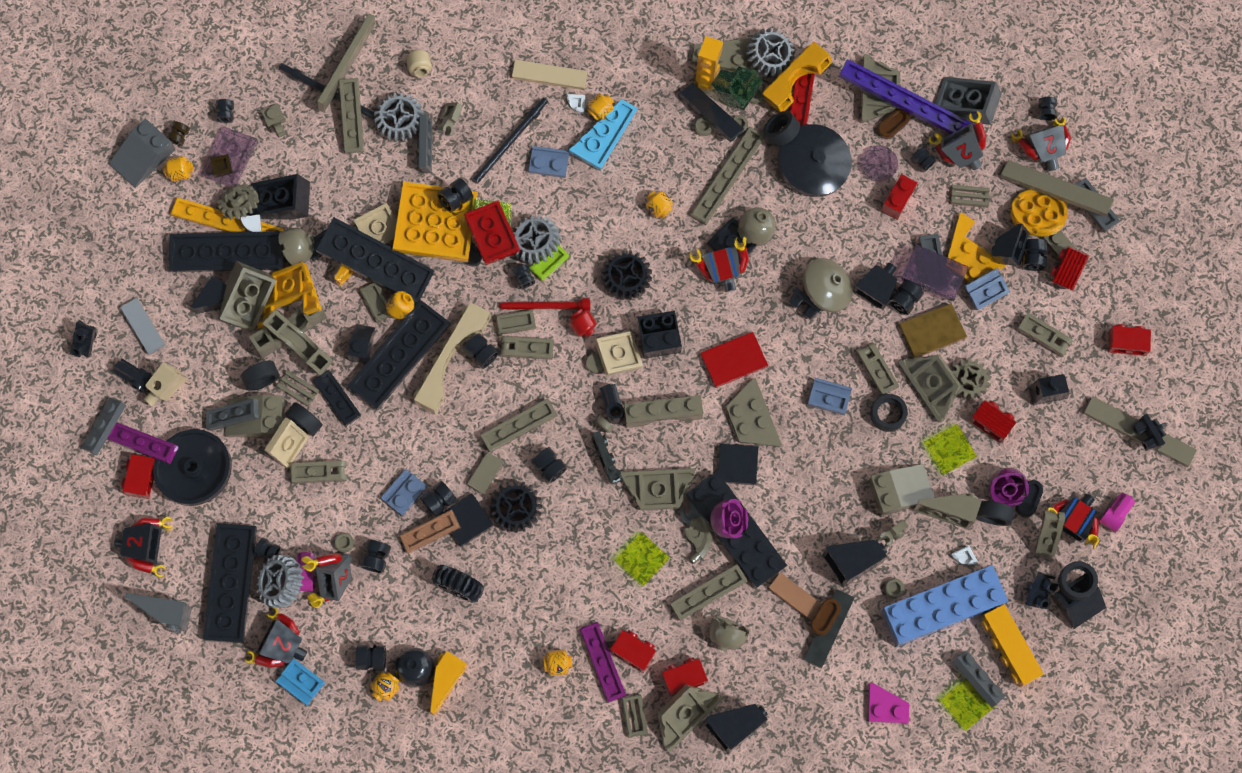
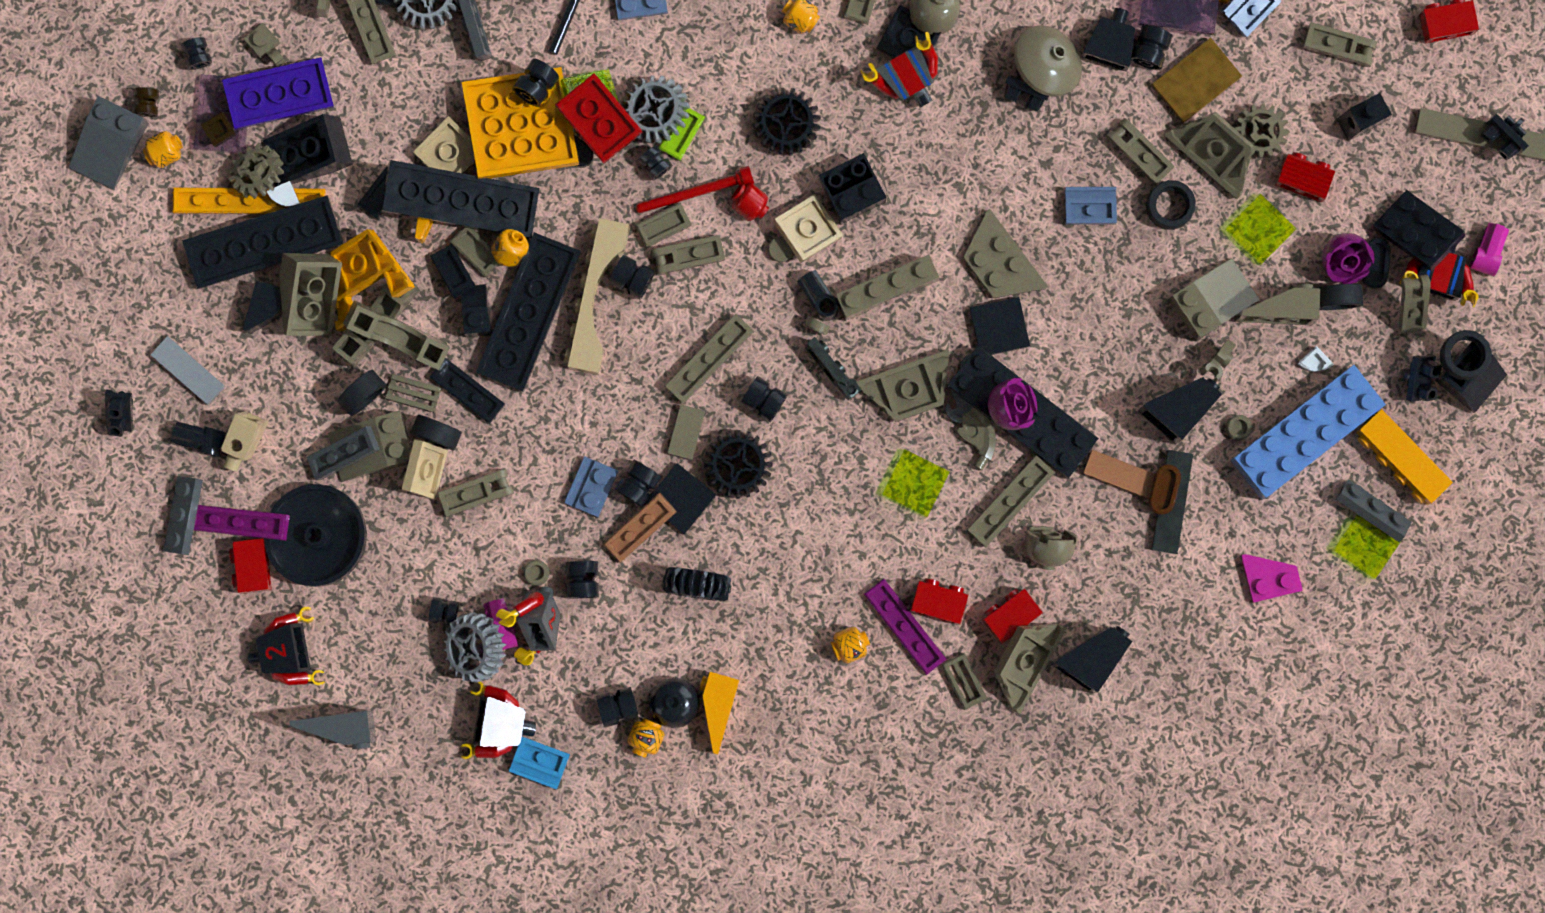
camera: 20 degrees left, 10 degrees up
(230, 583) = (411, 666): black plate -> none
(271, 153) = (277, 93): none -> dark purple plate
(297, 245) = (353, 207): dark tan cylinder -> none
(354, 310) = (452, 271): none -> black tile
(734, 359) = (955, 192): red tile -> none
(1067, 482) = (1419, 230): none -> black plate

